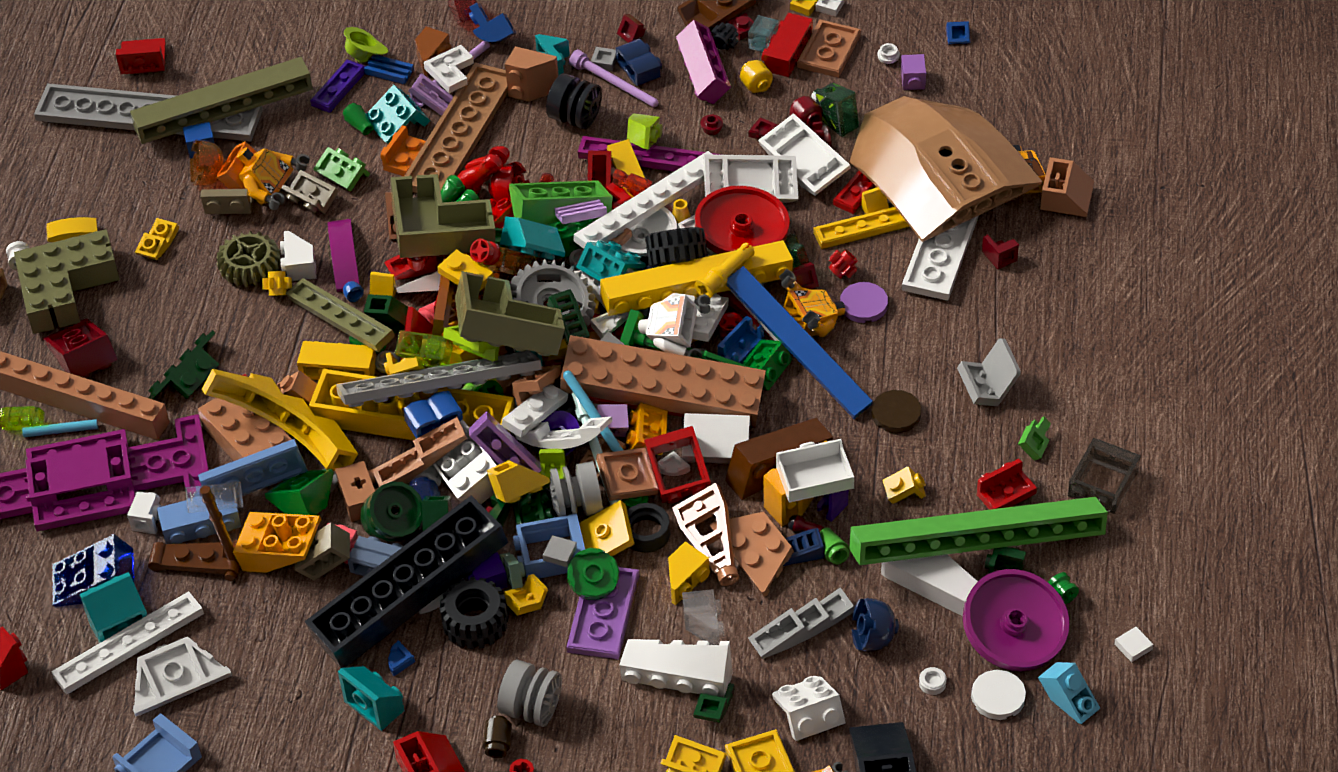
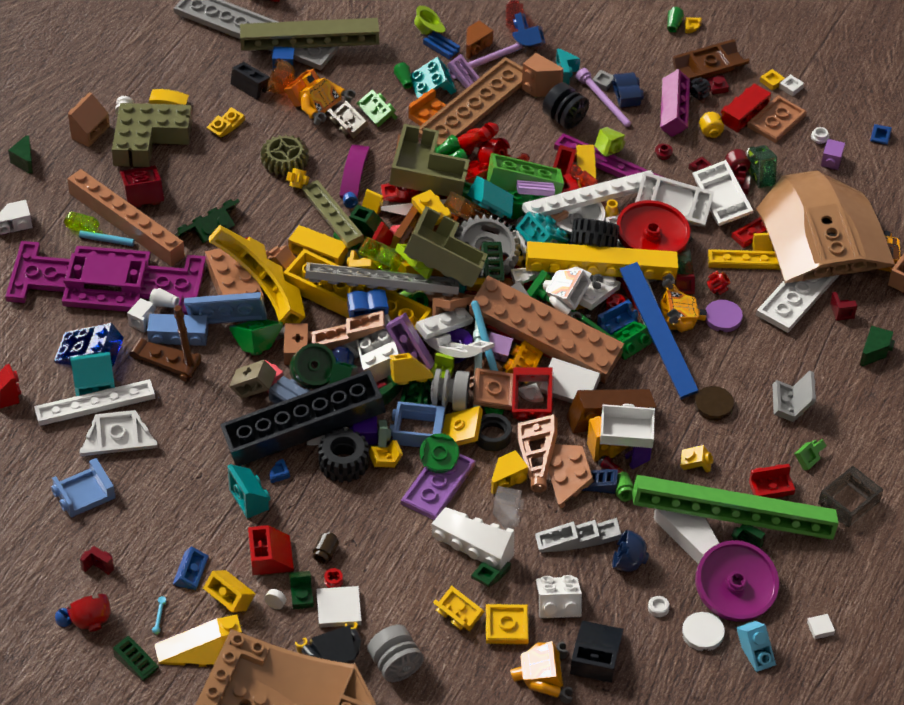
camera: 15 degrees right, 0 degrees up
(166, 177) = (249, 80): none -> black hinge
(167, 483) = (163, 298): none -> white cone
(226, 201) = (284, 109): dark tan bracket -> none
(226, 496) = (193, 318): clear slope -> none
(274, 540) = (222, 361): light orange slope -> none
(299, 257) = (320, 164): white slope -> none
(338, 86) = (399, 47): dark purple tile -> none
(447, 66) = (482, 54): white plate -> none
(482, 246) = (450, 197): red wheel -> none
(529, 693) = (359, 523): light grey wheel -> none
(559, 551) = (420, 429): light grey tile -> none
(630, 28) = (631, 63): dark red tile -> none
(718, 276) = (615, 264): yellow pin -> none
(761, 32) = (728, 92): clear light blue brick -> none
(1059, 285) = (877, 345): none -> dark green slope
(1066, 589) = (784, 569): green wheel -> none

